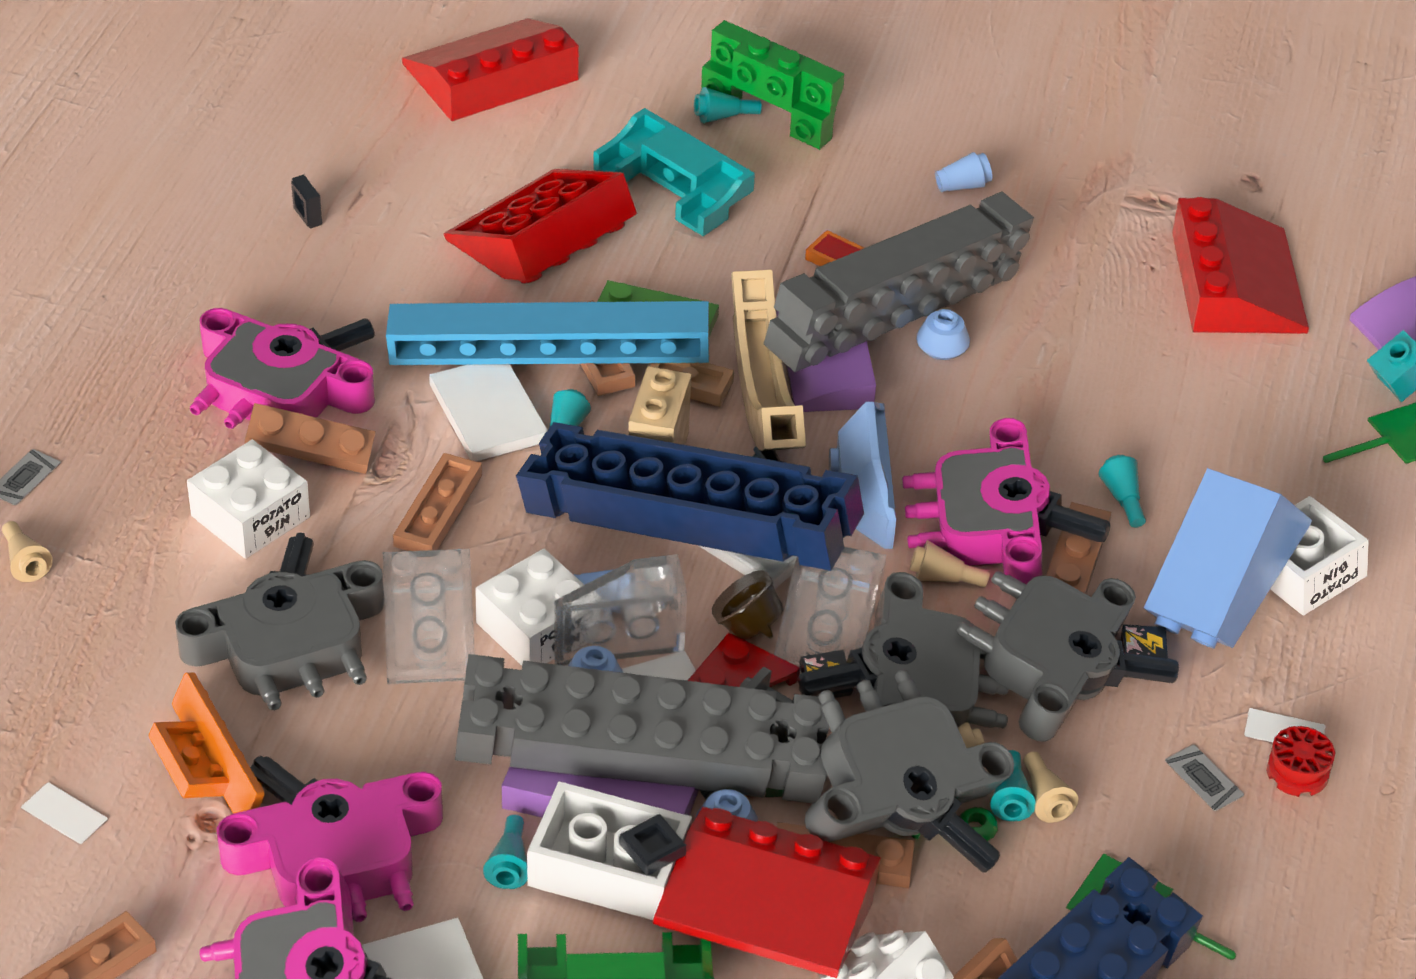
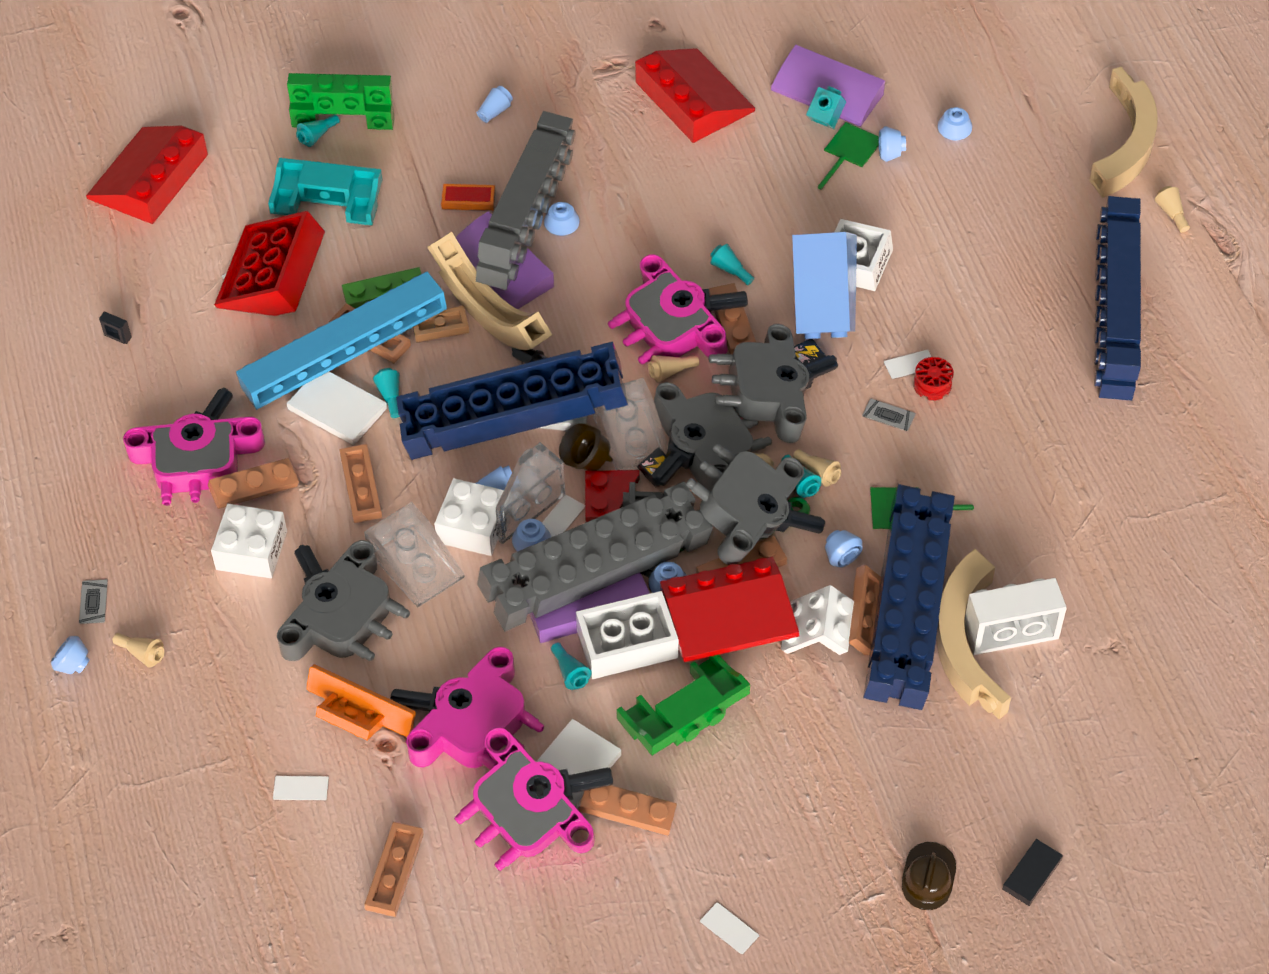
camera: 30 degrees left, 10 degrees up
(653, 844) = (656, 618): black tile -> none
(662, 406) = (452, 355): tan piece -> none
(865, 452) = (584, 328): light blue wedge -> none
(996, 905) = (843, 548): none -> light blue cone

